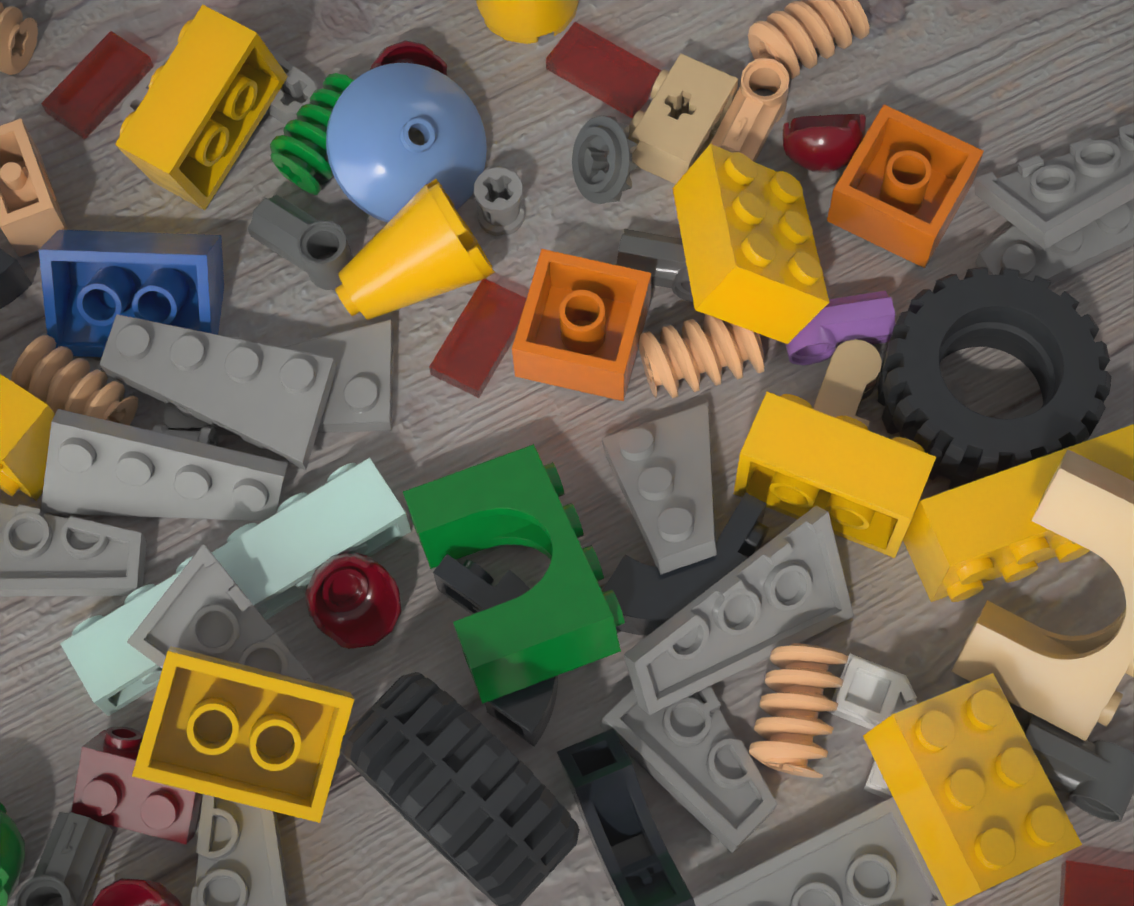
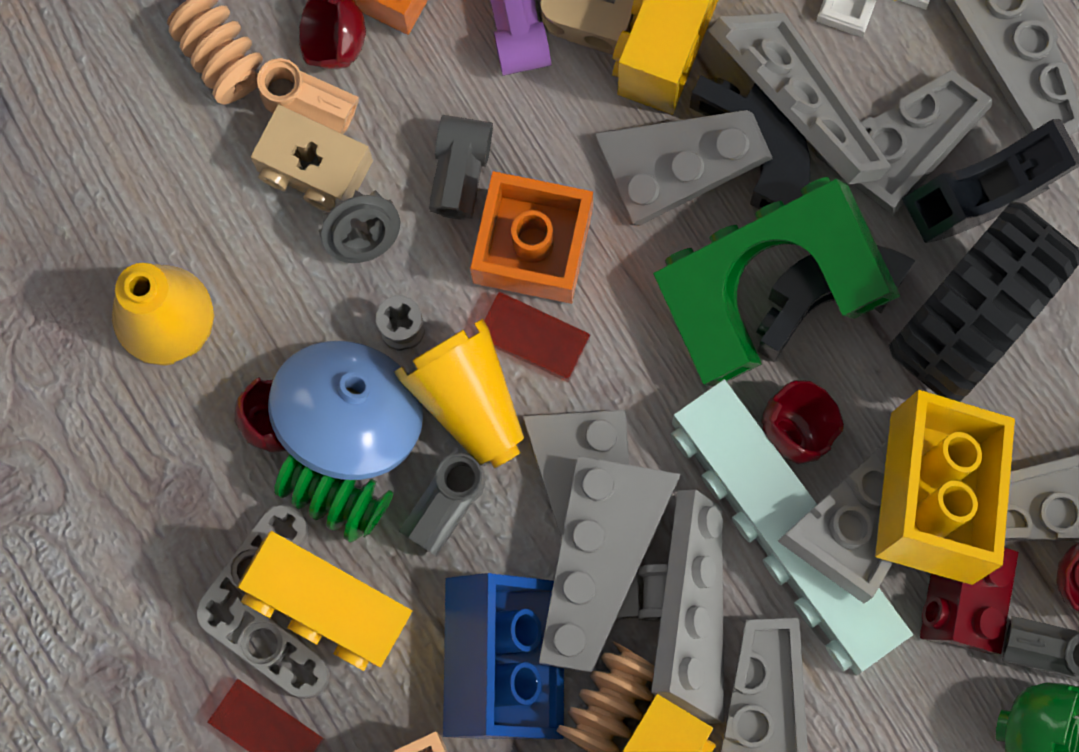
camera: 90 degrees left, 10 degrees up
(603, 69) = (249, 237): clear red tile -> none
(697, 353) = (550, 134): light nougat piece -> none
(749, 245) = (462, 86): yellow brick -> none
(796, 708) = (874, 51): light nougat piece -> none

